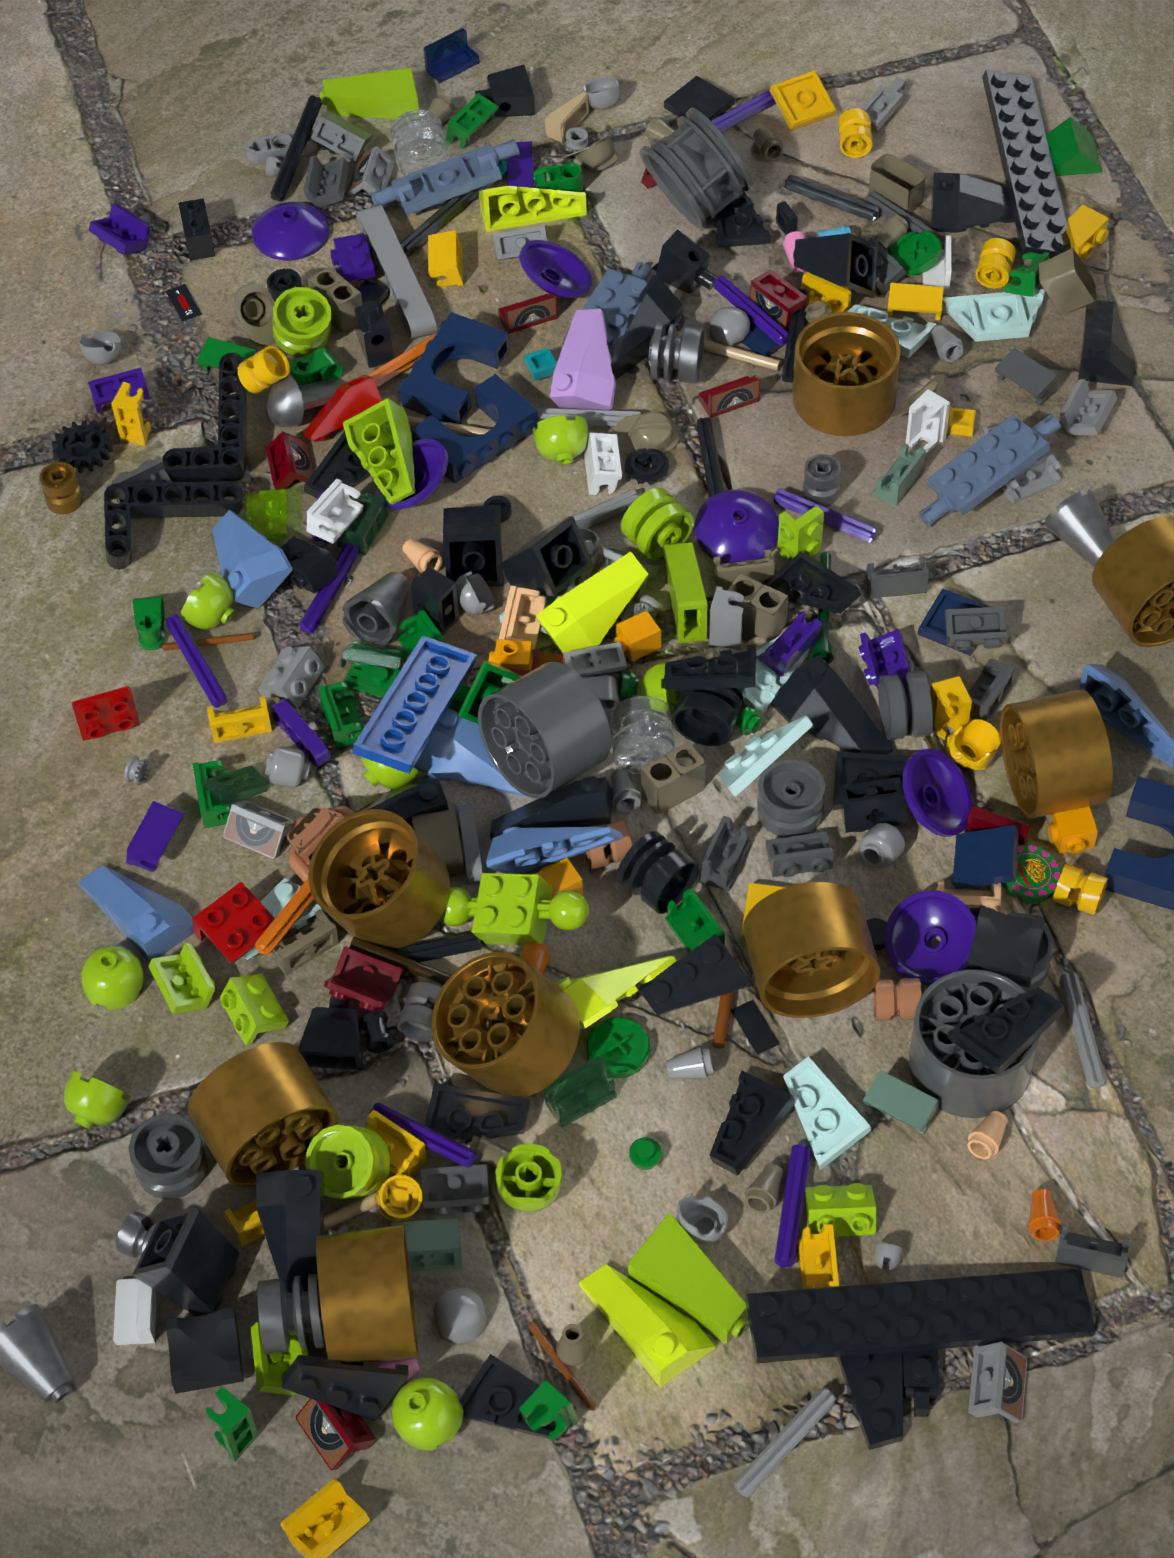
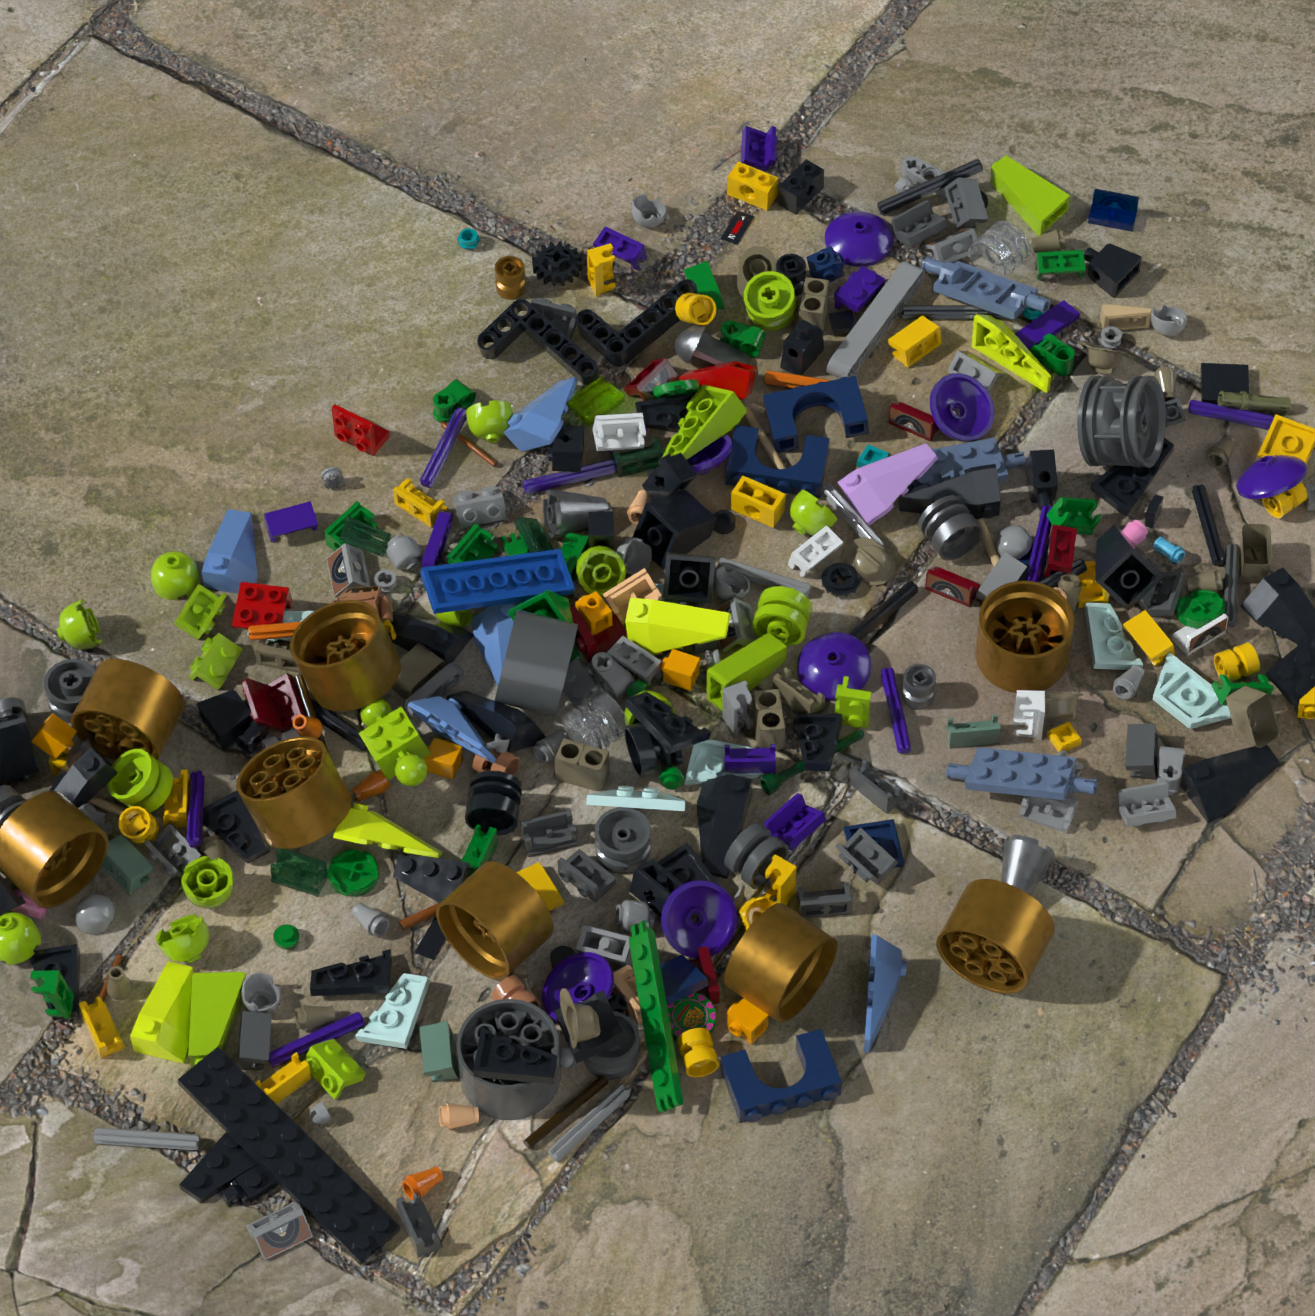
camera: 50 degrees right, 0 degrees up
(157, 260) = (752, 186): none -> yellow brick
(223, 1202) = (54, 736): none -> light orange brick
(295, 798) = (388, 575): none -> light grey bush
(303, 260) = (826, 264): none -> dark blue brick
(326, 445) = (676, 388): none -> green tile
(426, 495) = (669, 477): none -> black brick
(430, 977) = (307, 726): none -> orange cone
(469, 624) = (600, 569): none -> lime cylinder
(509, 466) = (758, 501): none -> yellow brick
(574, 1244) = (184, 939): none -> lime cylinder
(601, 820) = (498, 745): none -> light grey hand
(613, 1399) = (101, 1027): none -> yellow hinge
(735, 96) = (1243, 400): none -> olive pin
(745, 269) = (1075, 514): none -> green hinge
(749, 1261) = (254, 1040): none -> dark grey hinge
(762, 356) = (1005, 571): none -> light grey hinge
(833, 126) = (1271, 476): none -> dark purple dish
(901, 883) = (609, 945): none -> light grey brick
(1007, 945) = (579, 1019): none -> dark tan piece
(1023, 893) = (655, 1017): none -> green hinge
(1056, 1057) = (565, 1112): none -> dark brown bar
(1065, 368) = (1170, 767): none -> light grey piece

